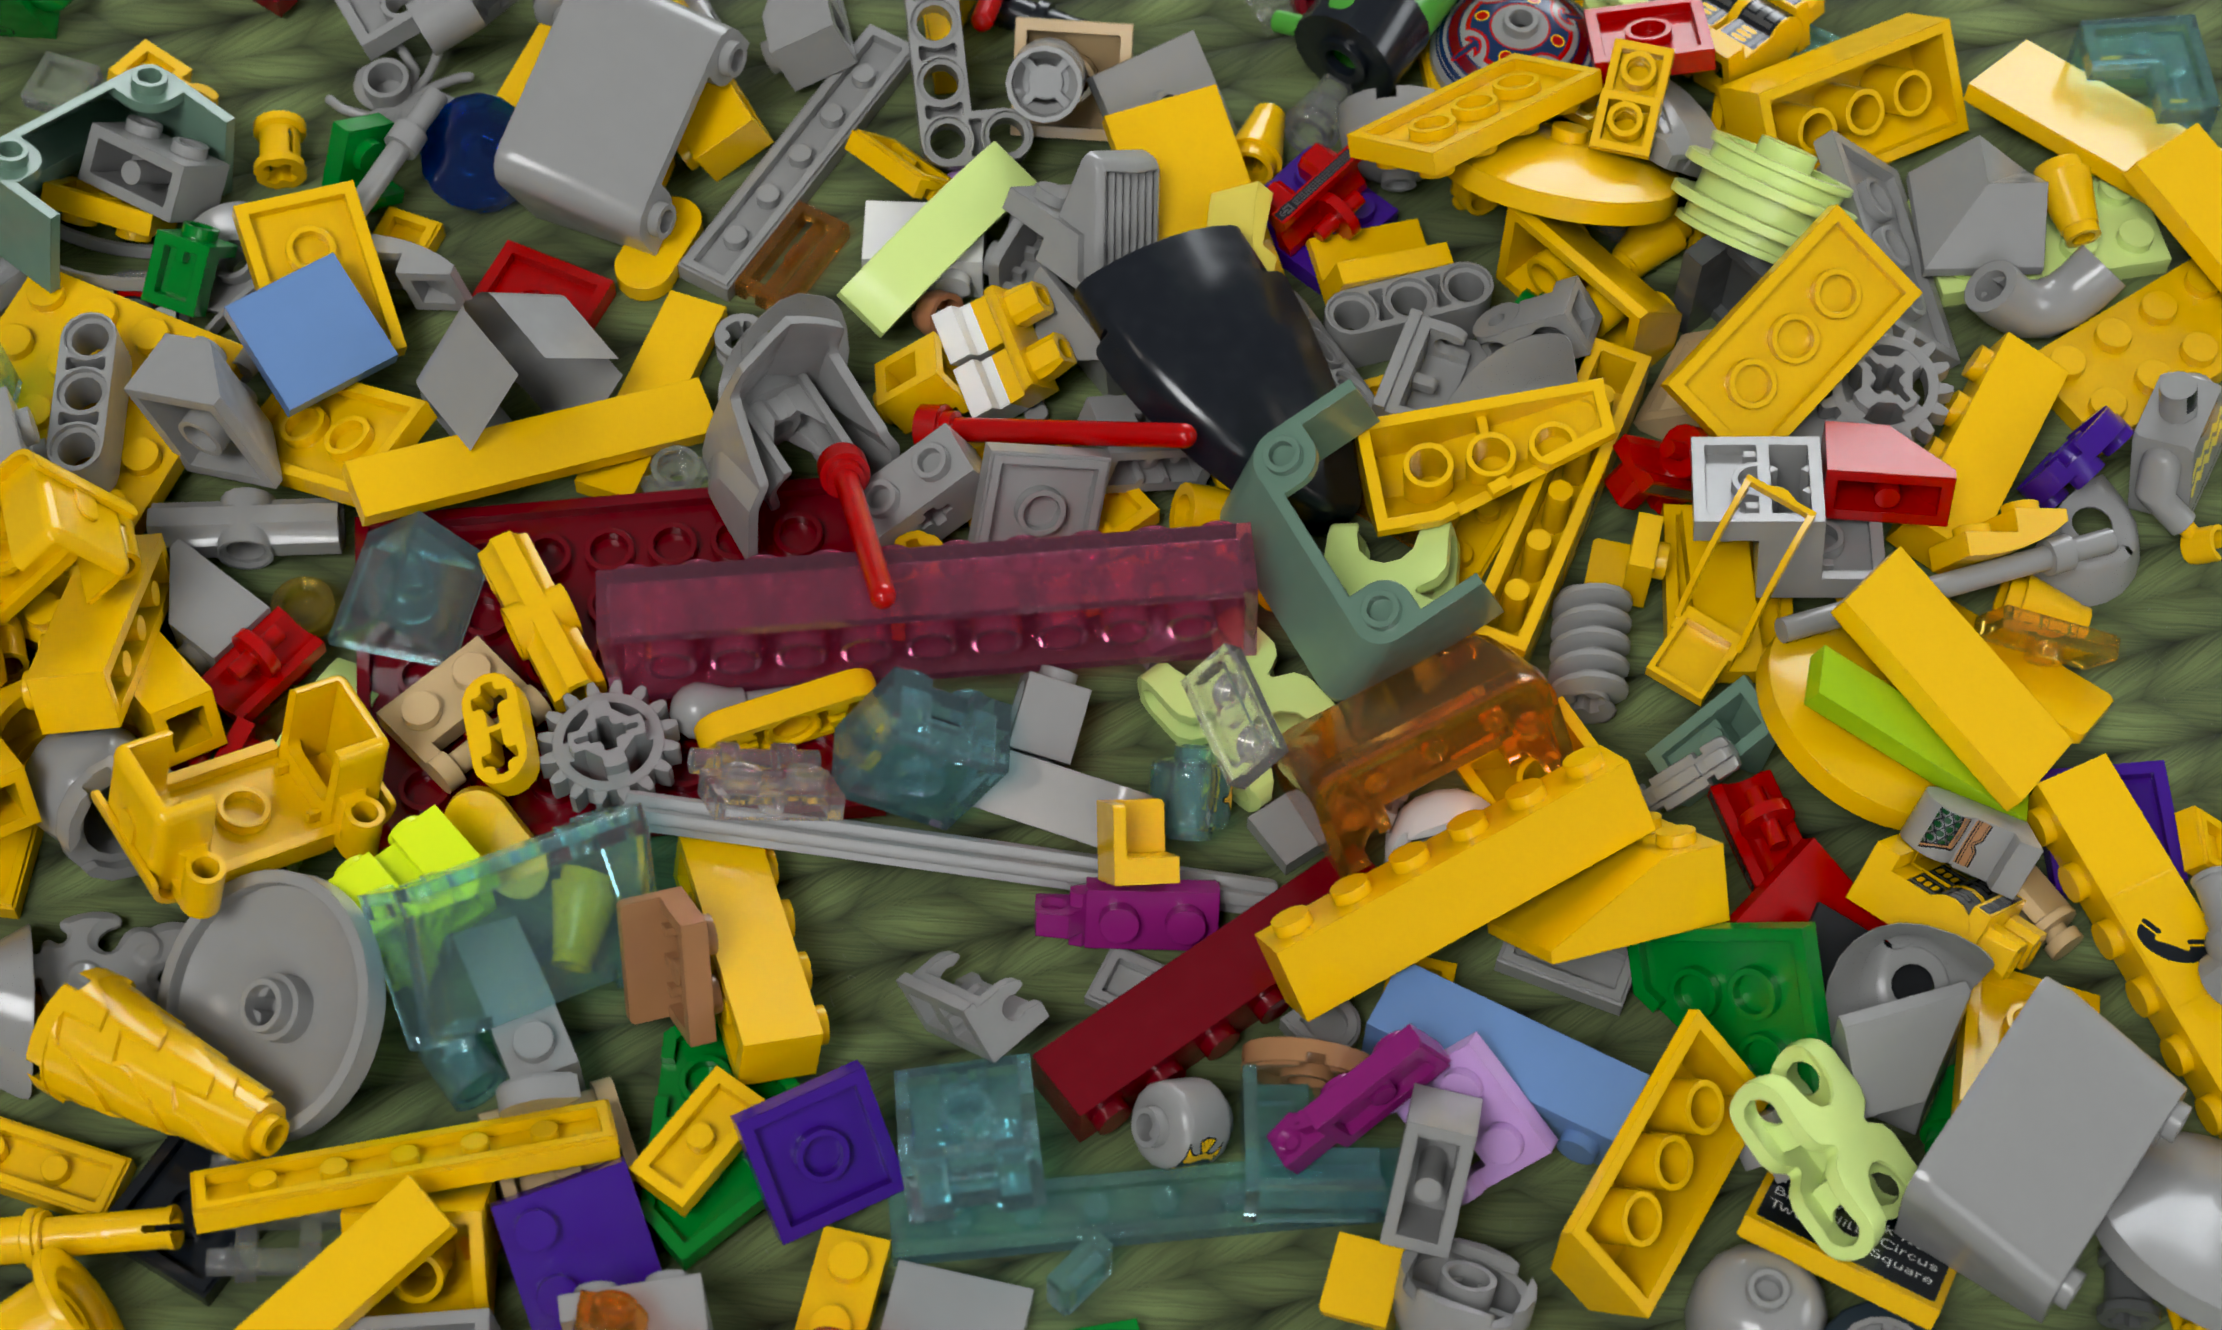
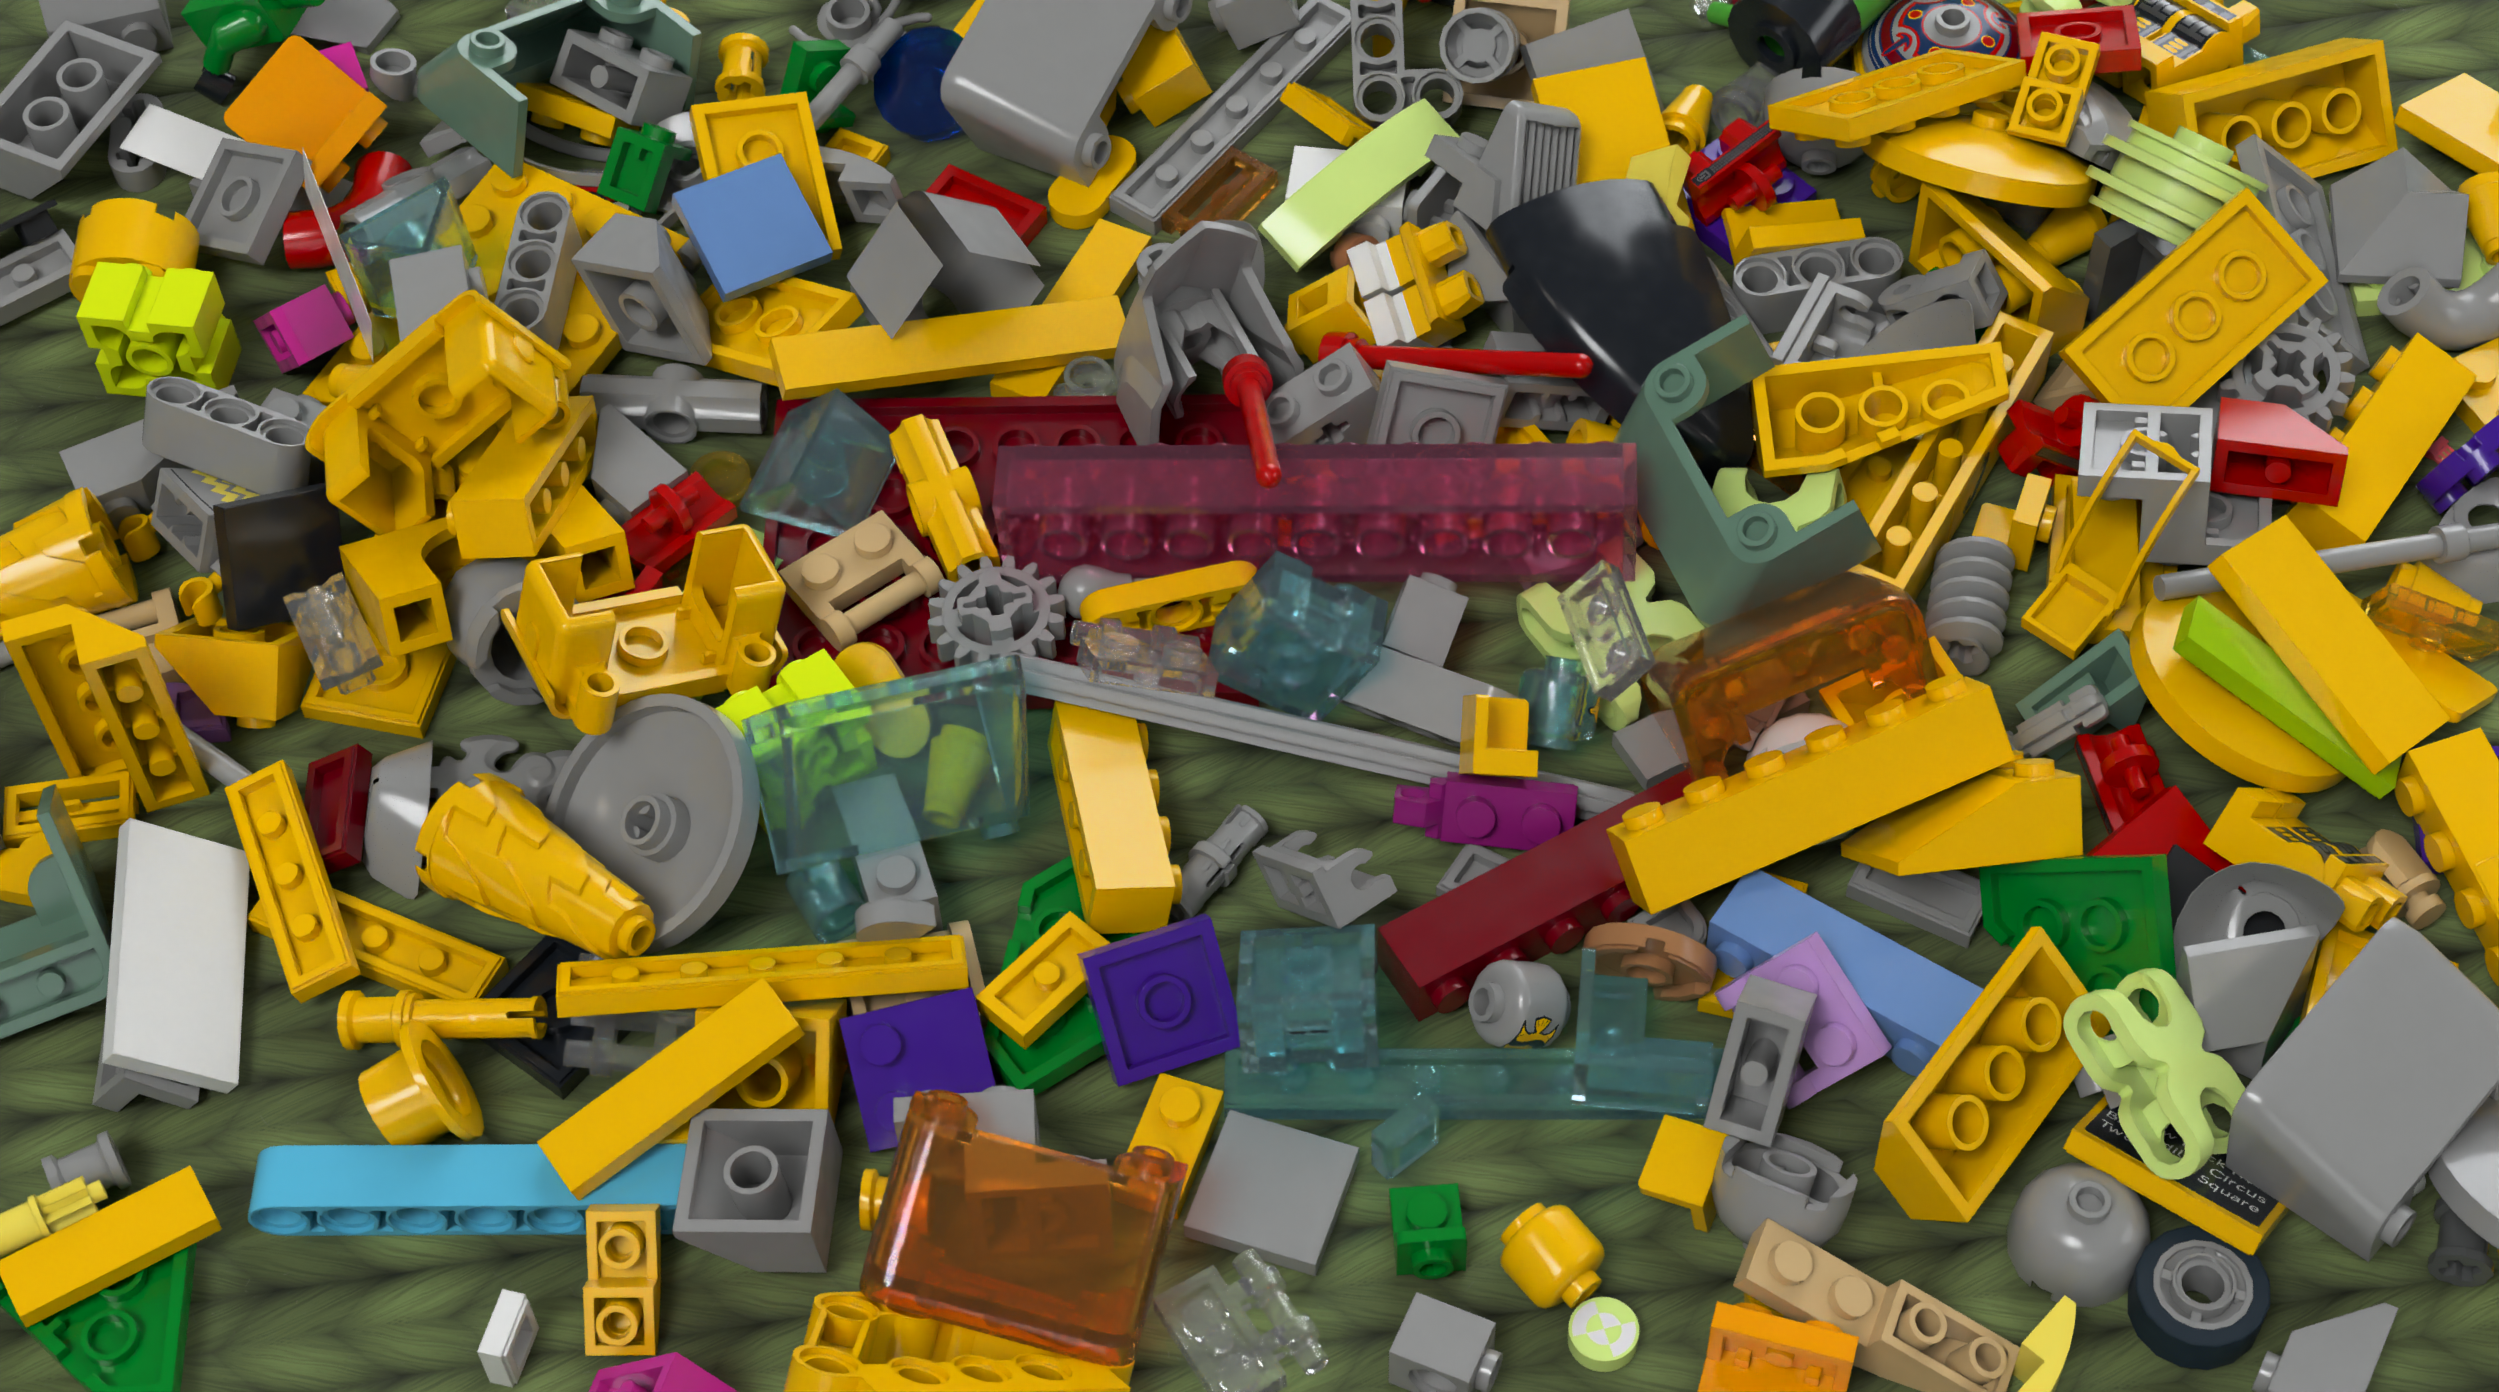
camera: 10 degrees right, 5 degrees down
(513, 731) = (906, 592): yellow beam -> none
(668, 963) = (1031, 811): medium nougat bracket -> none
(859, 986) = (1215, 860): none -> light grey pin
(1360, 1098) = (1695, 985): magenta hinge -> none
(1973, 839) = (2337, 798): light grey leg -> none
(2015, 528) = (2404, 515): yellow slope -> none
(2039, 448) = (2439, 450): none -> coral piece

